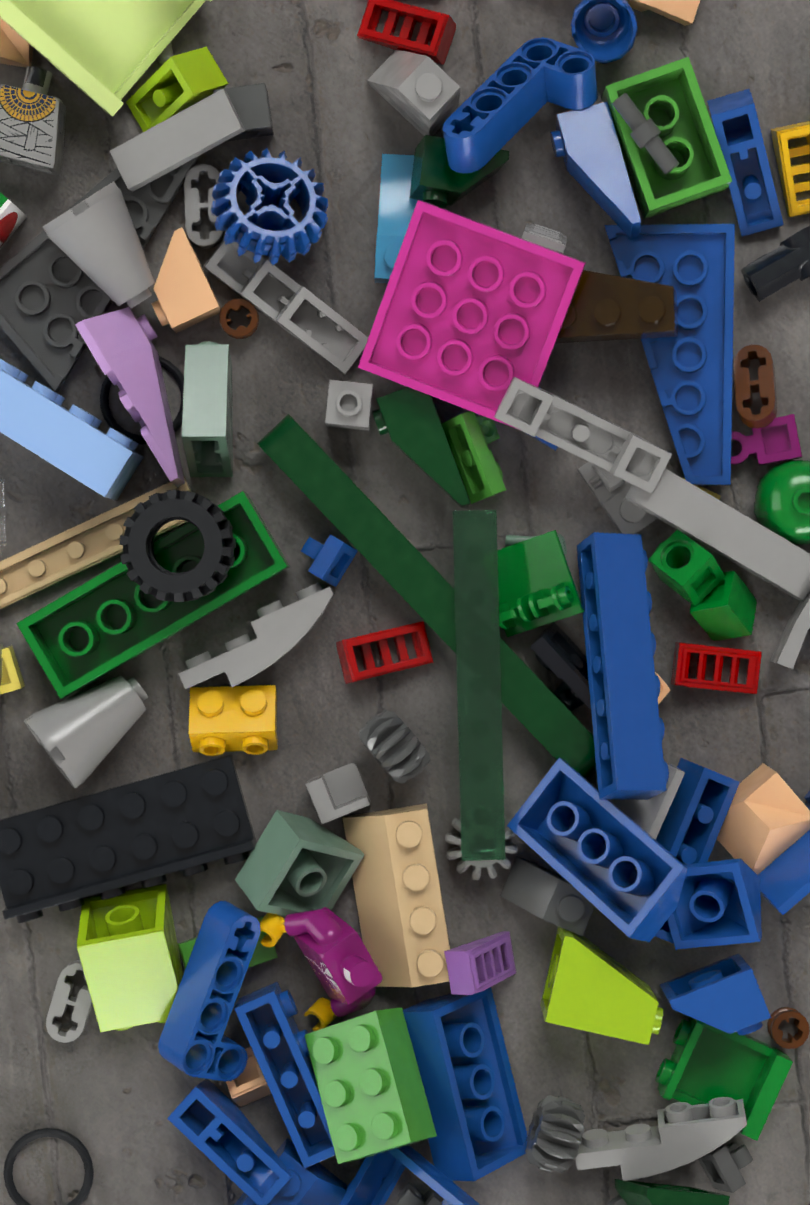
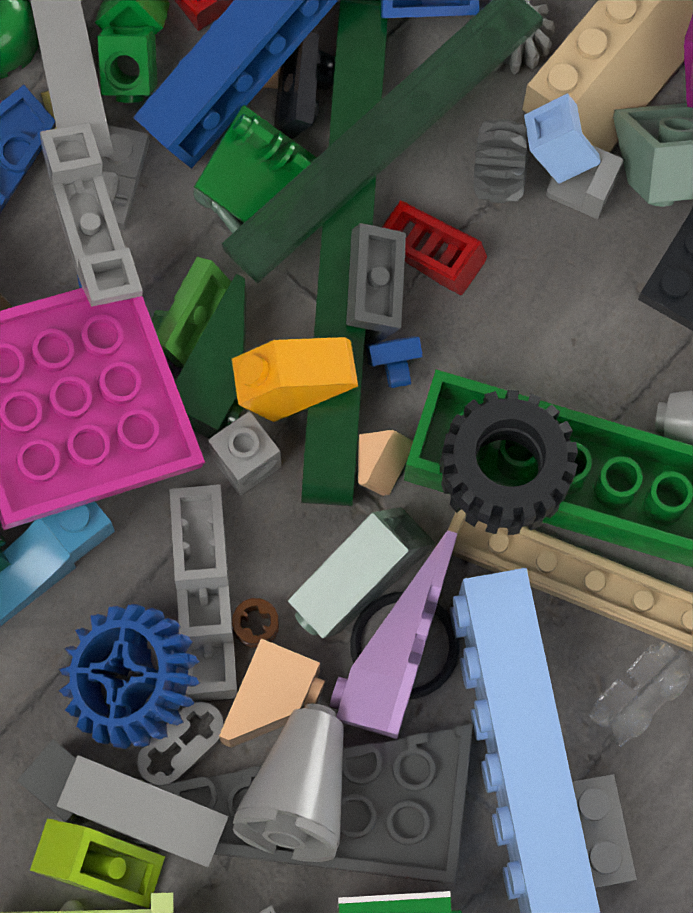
camera: 135 degrees left, 15 degrees down
(233, 719) = (607, 317): yellow bracket -> none
(268, 486) = (381, 459): none -> light nougat slope
(277, 633) = (500, 339): light grey slope -> none
(365, 475) = (293, 375): none -> light orange slope
(372, 791) = (558, 139): none -> light blue panel
(384, 587) = (376, 280): none -> dark grey panel

